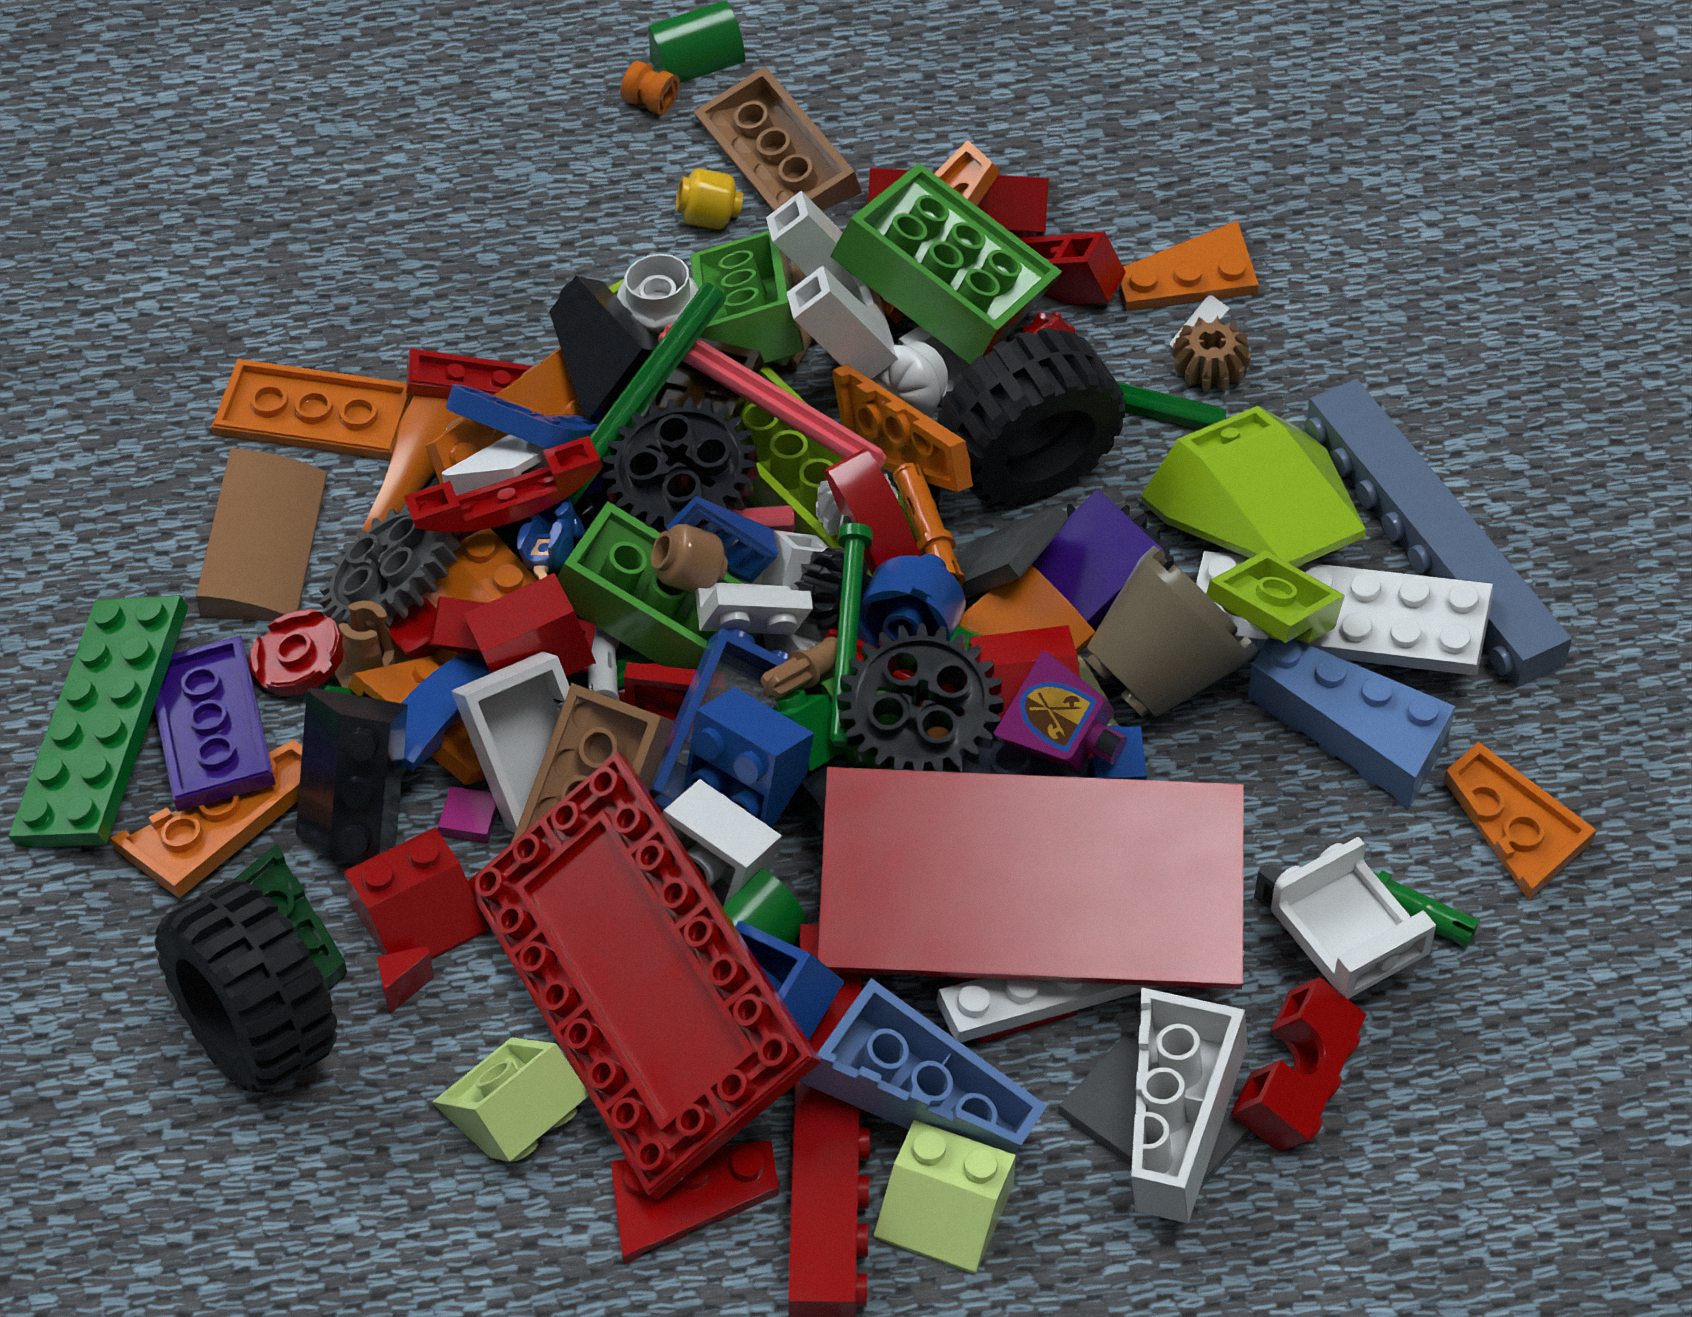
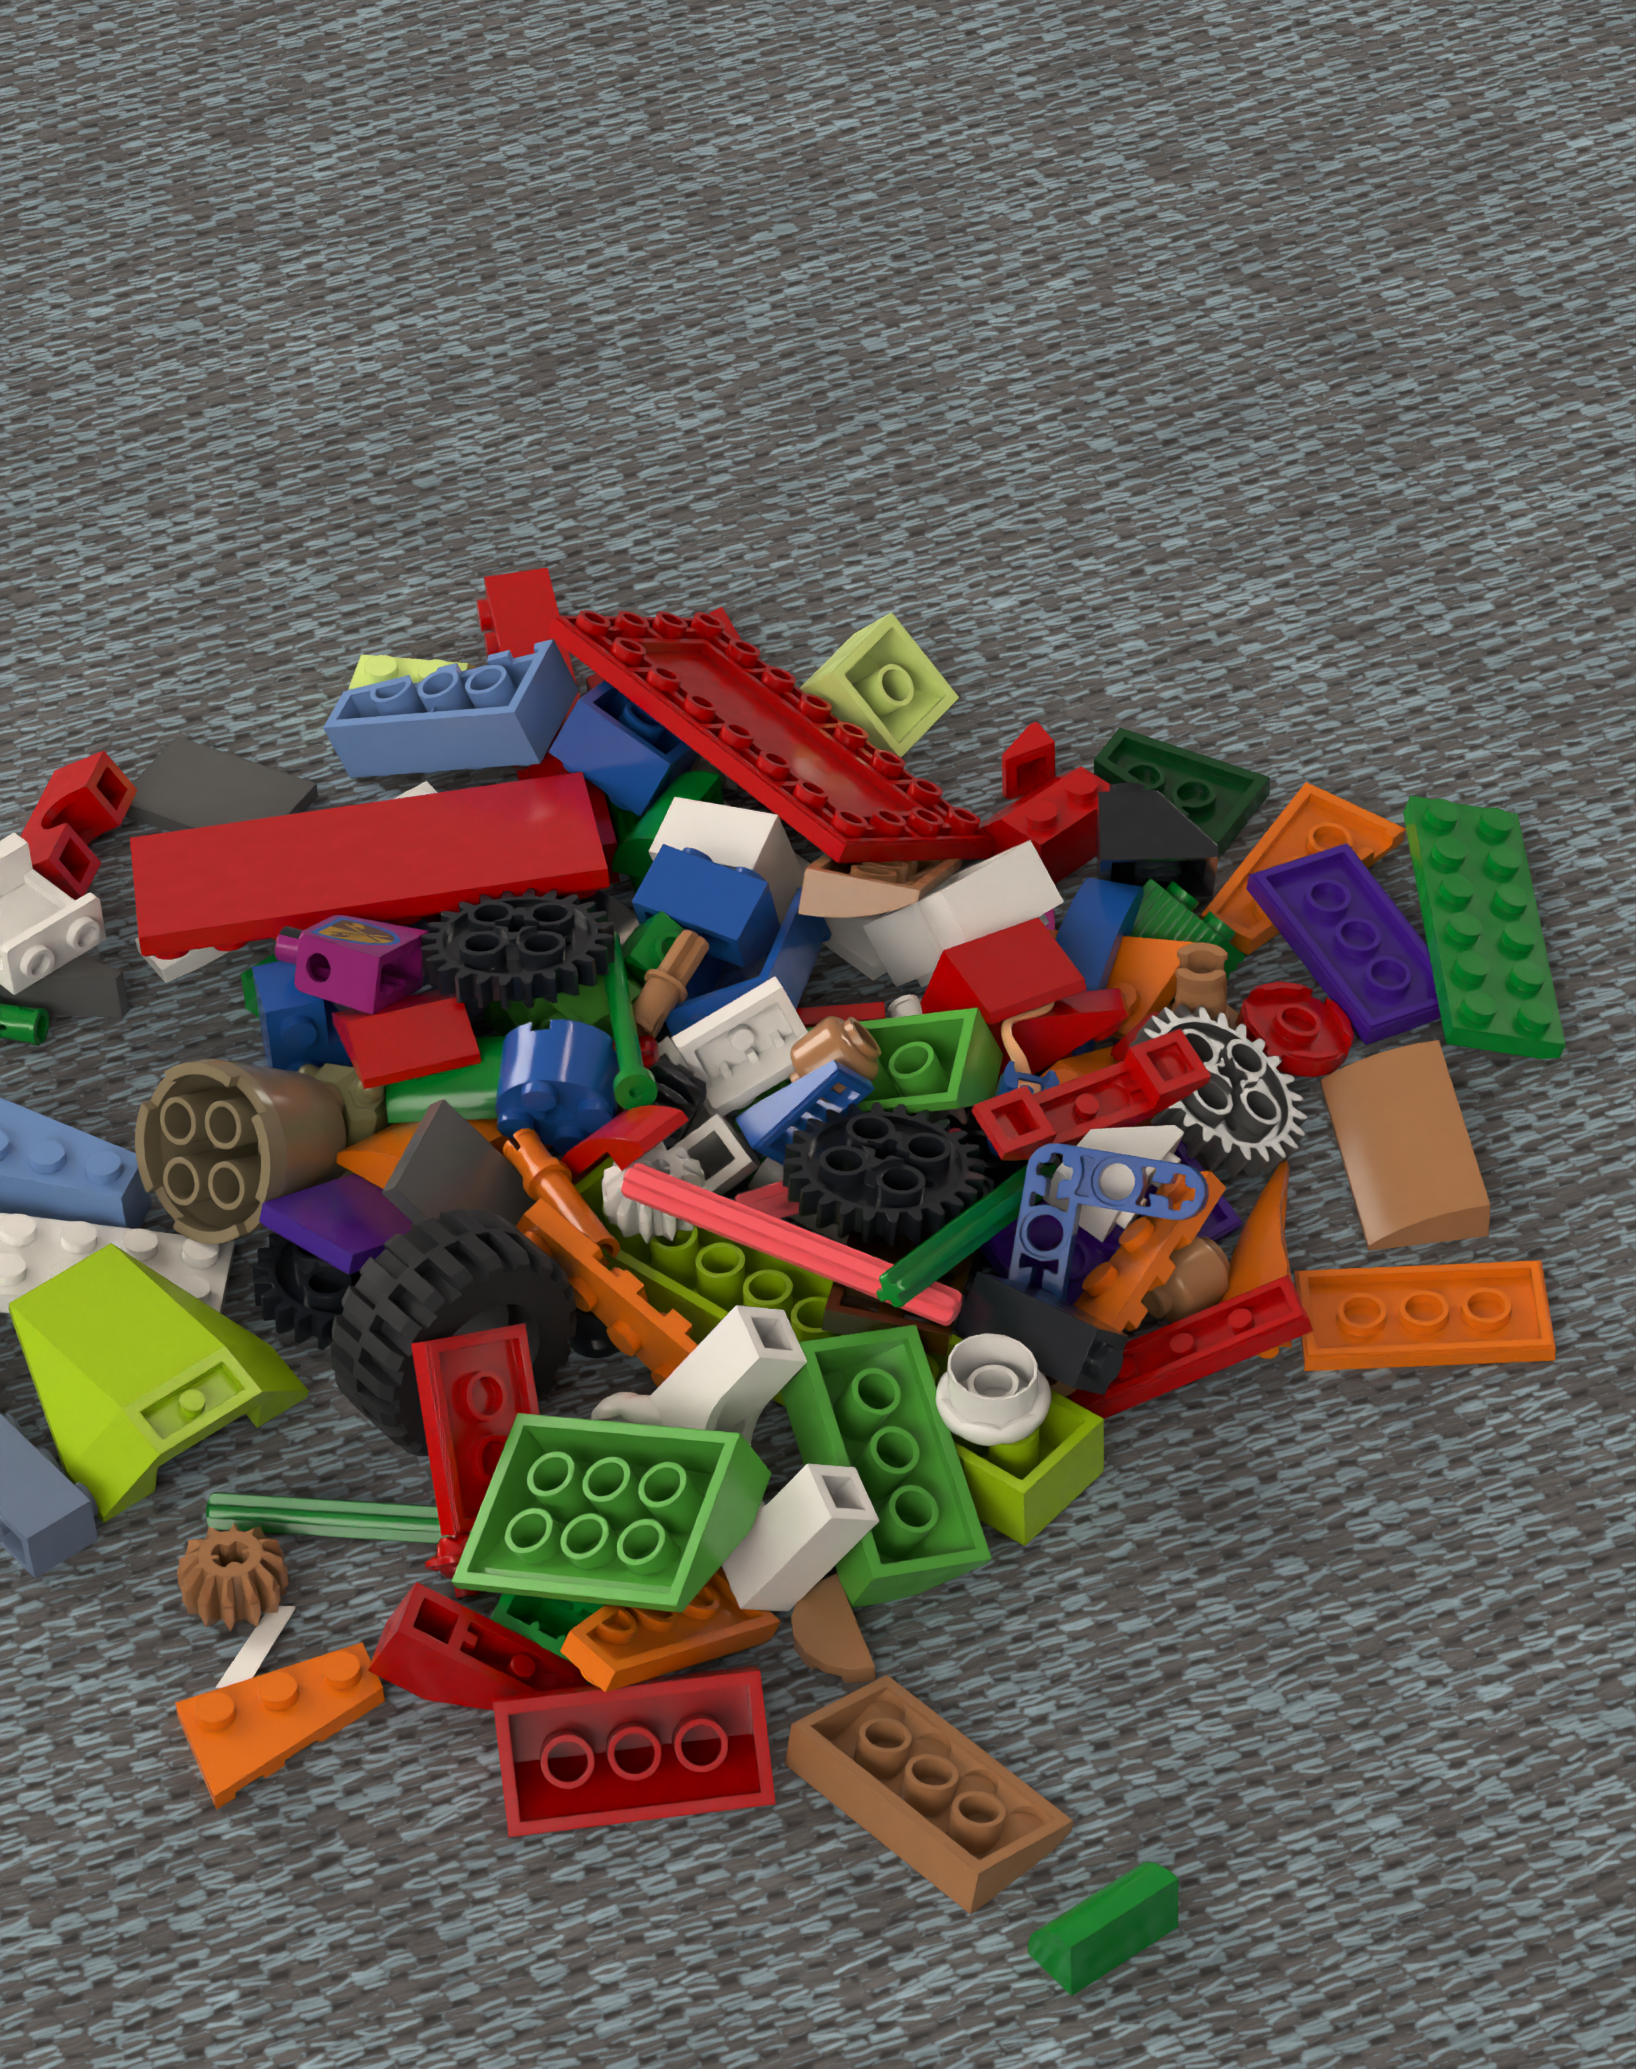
camera: 170 degrees right, 10 degrees down
(246, 985) = (1162, 640): black tyre -> none
(648, 87) = (1150, 1837): orange wheel -> none
(708, 199) = (999, 1672): yellow head -> none
(1182, 1090) = (186, 754): white wedge -> none
(1277, 598) = (116, 1179): lime plate -> none

